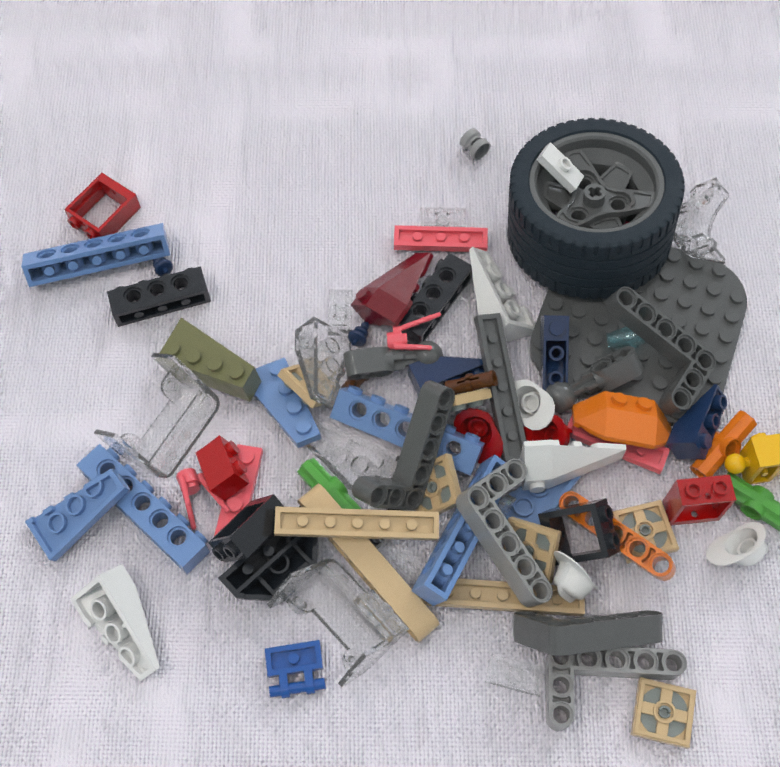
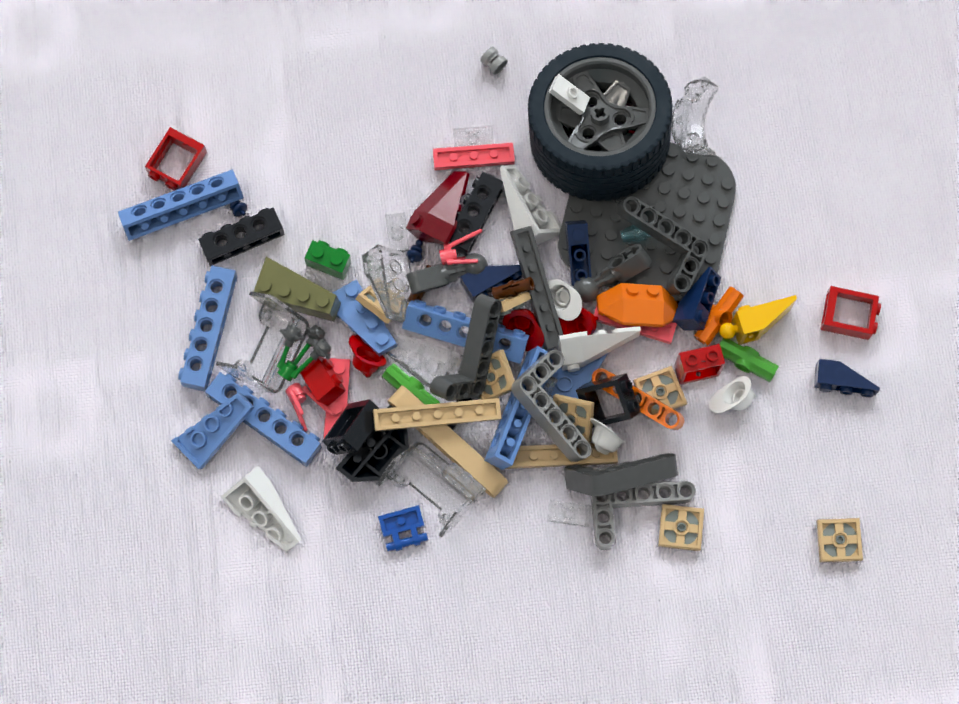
camera: 10 degrees left, 10 degrees up
(101, 406) = (215, 277): none -> medium blue brick
(222, 426) = (316, 339): none -> plant
(254, 331) = (327, 259): none -> green brick
(279, 447) = (364, 357): none -> red piece

